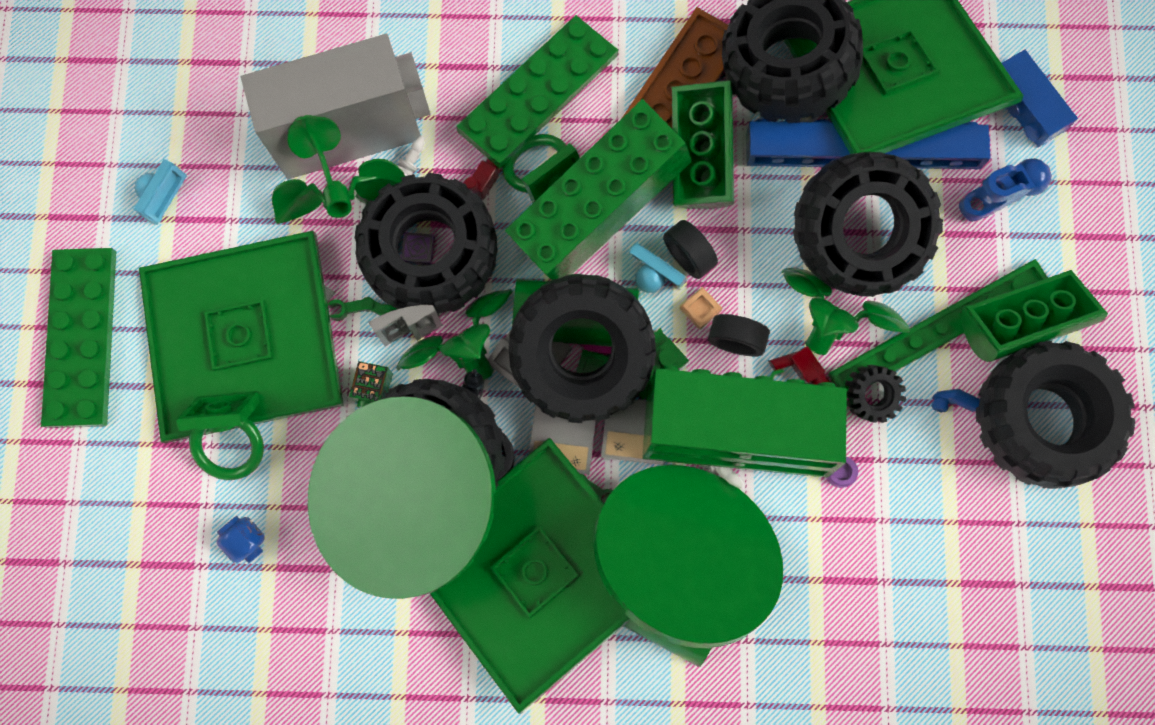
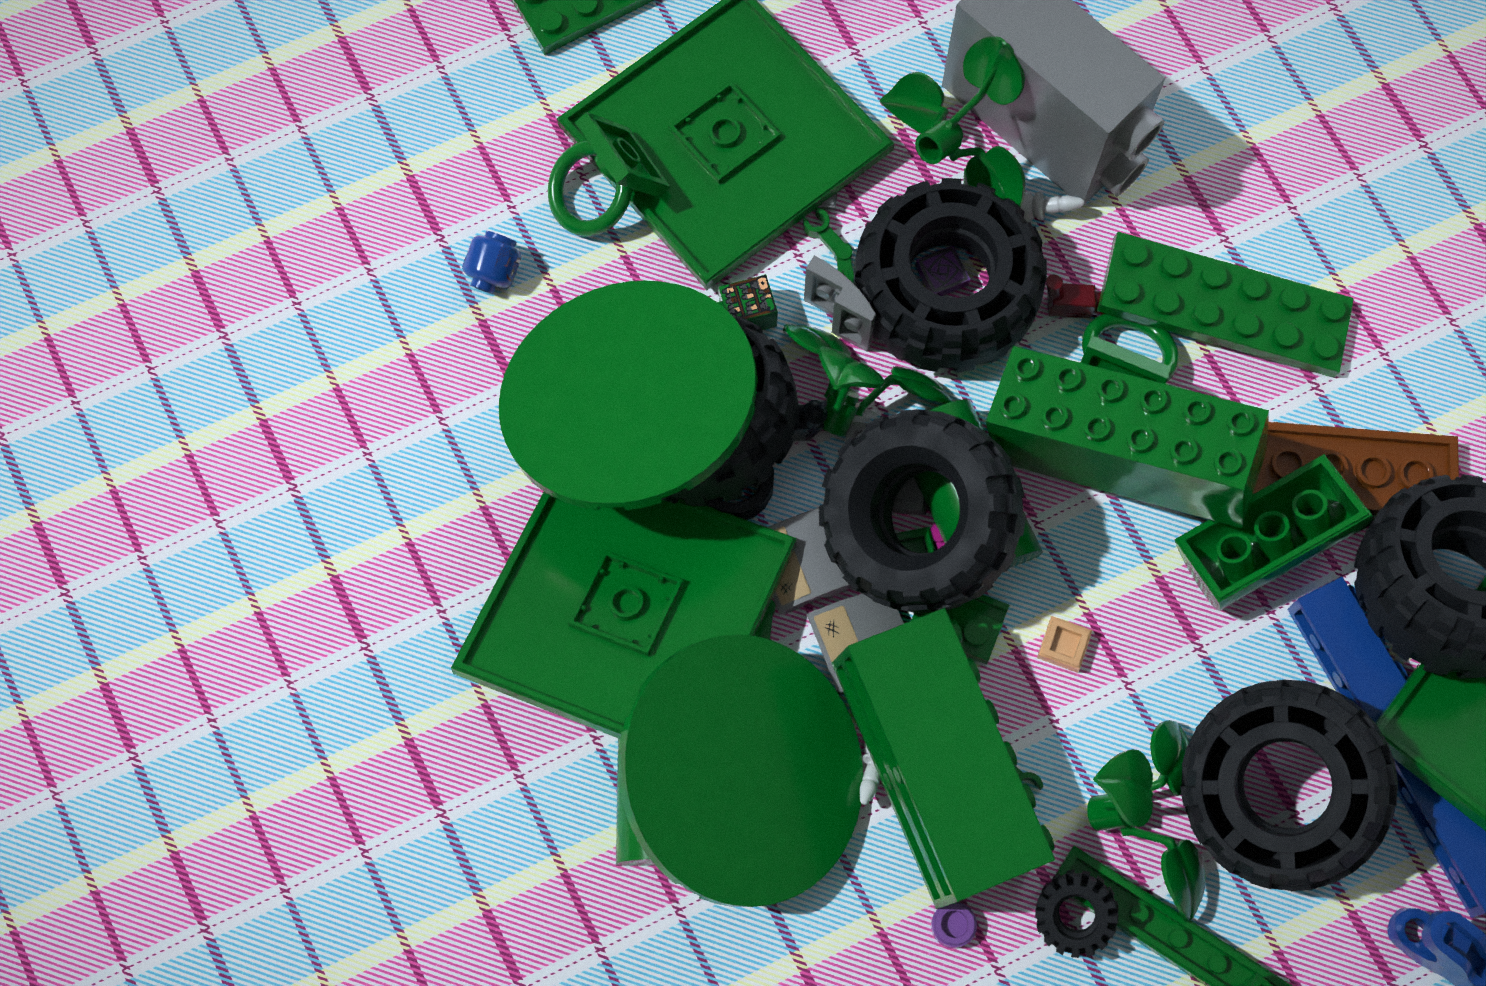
camera: 60 degrees right, 5 degrees down
(655, 271) = (1077, 562): medium azure tile -> none
(690, 249) = (1128, 587): black tyre -> none
(738, 335) = (1052, 701): black tyre -> none
(804, 365) = (1065, 809): dark red piece -> none

